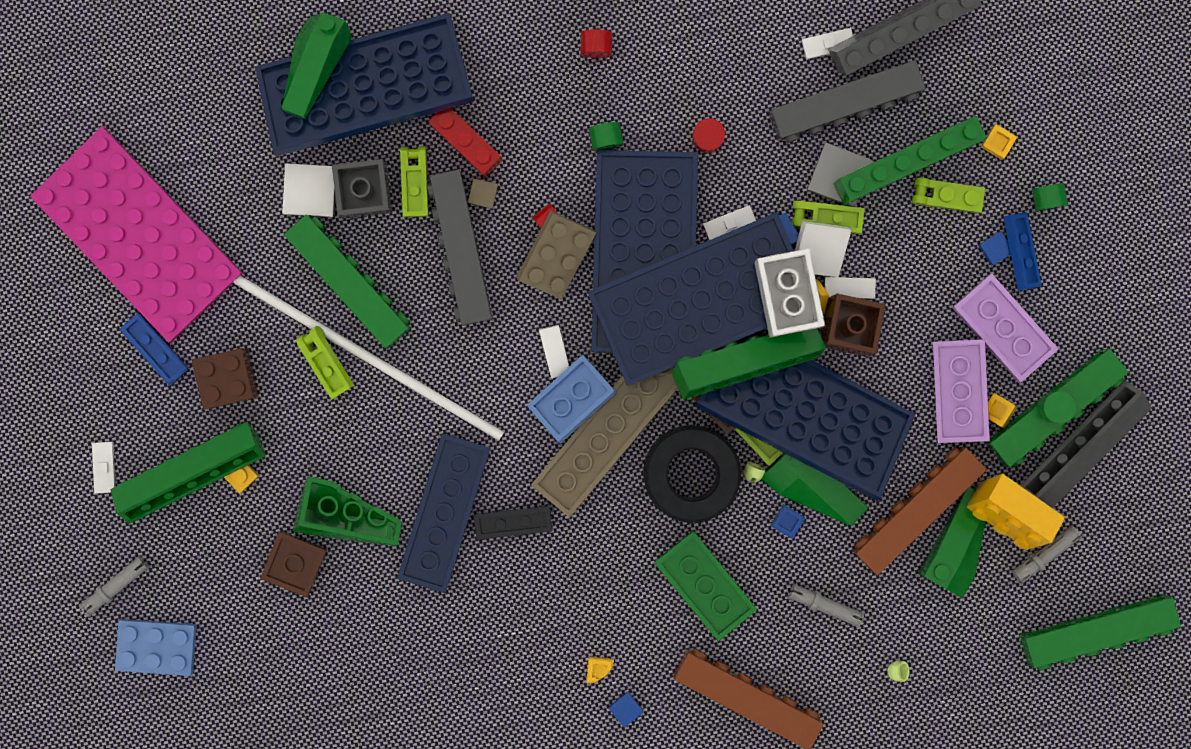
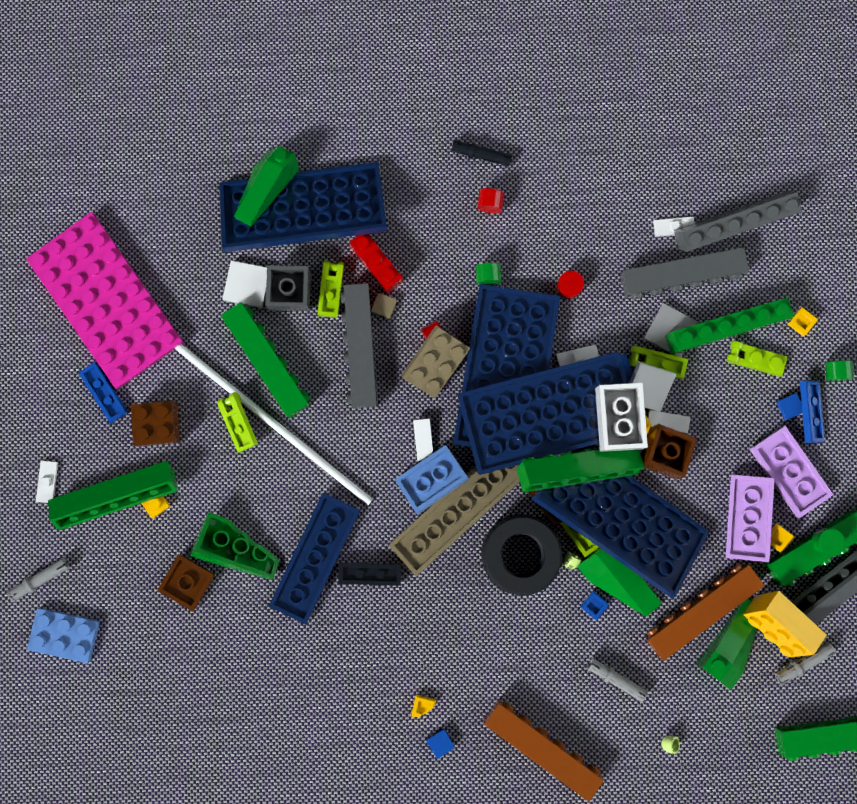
camera: 15 degrees right, 5 degrees down
(705, 585) = (520, 649): green plate -> none

